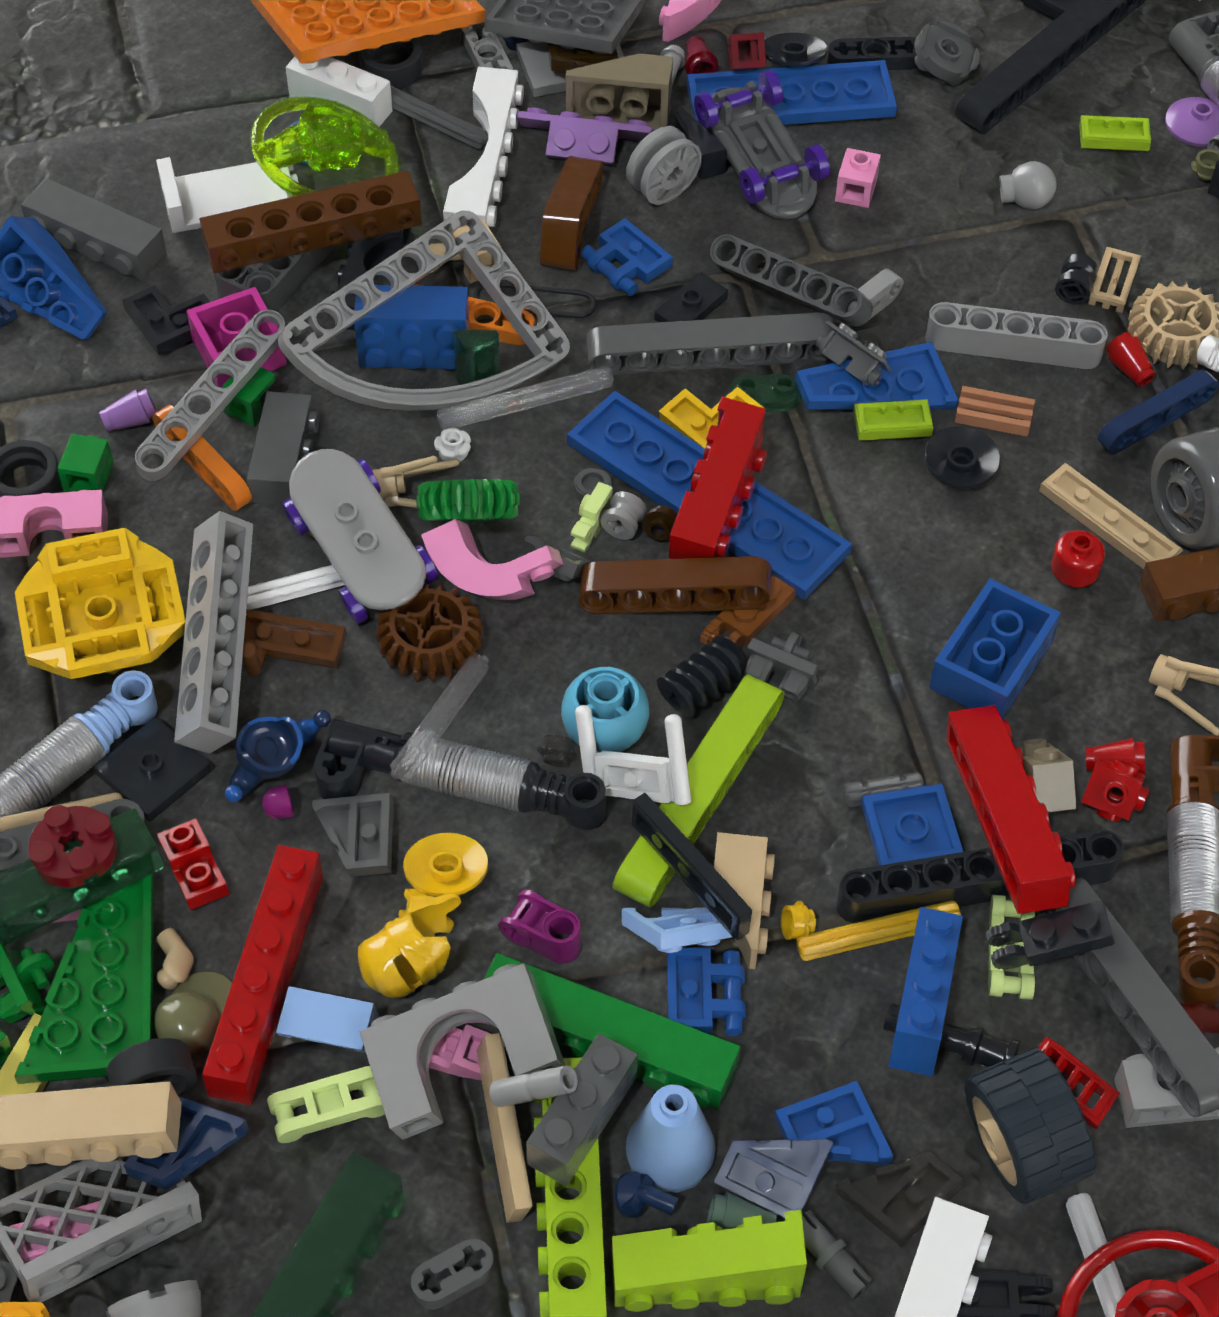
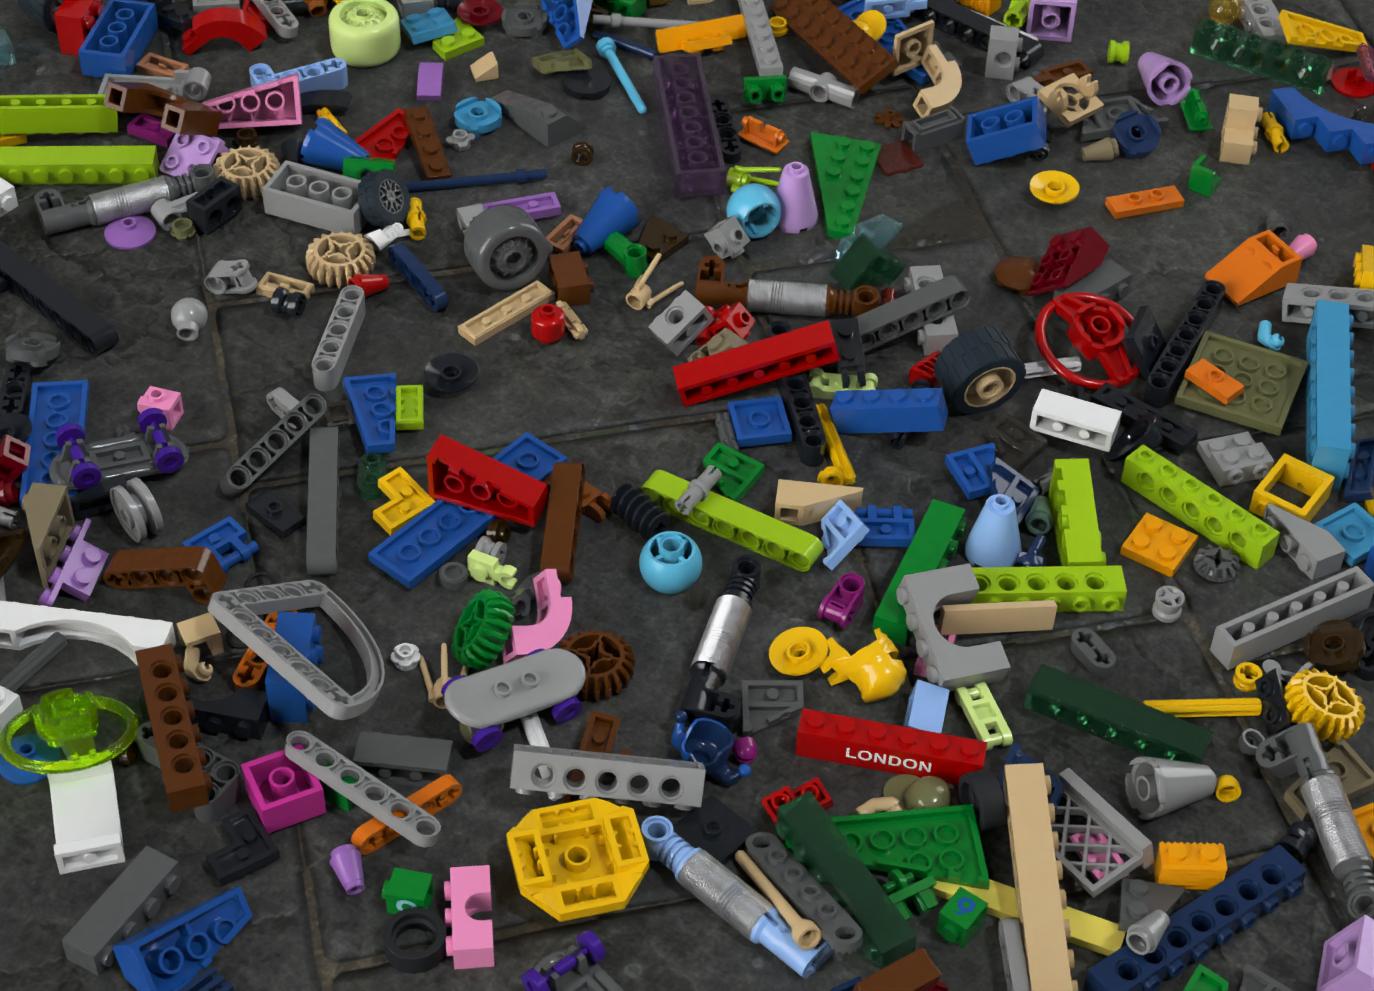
camera: 90 degrees left, 10 degrees down
(70, 824) = (816, 821): dark red plate -> none
(439, 718) = (687, 645): clear axle -> none
(476, 355) = (336, 628): clear green slope -> none
(525, 398) = (359, 600): clear axle -> none
(537, 1085) = (990, 570): light grey piece -> none
(579, 1117) = (996, 561): dark grey brick -> none
(634, 774) = (732, 539): white plate -> none
(691, 866) = (809, 508): black tile -> none
(727, 730) = (698, 489): none -> light grey pin
(785, 660) = (626, 471): dark grey hips -> none
(800, 793) = (737, 471): none -> green wing
(865, 360) = (350, 414): dark grey hinge -> none
(994, 649) = (625, 366): blue brick -> none
(995, 405) = (395, 352): nougat tile -> none
(1098, 717) = (681, 322): none -> light grey brick
(1103, 593) = (572, 321): none -> tan axle
(1113, 218) = (230, 278): none -> light grey piece
(1115, 133) = (139, 271): lime plate -> none

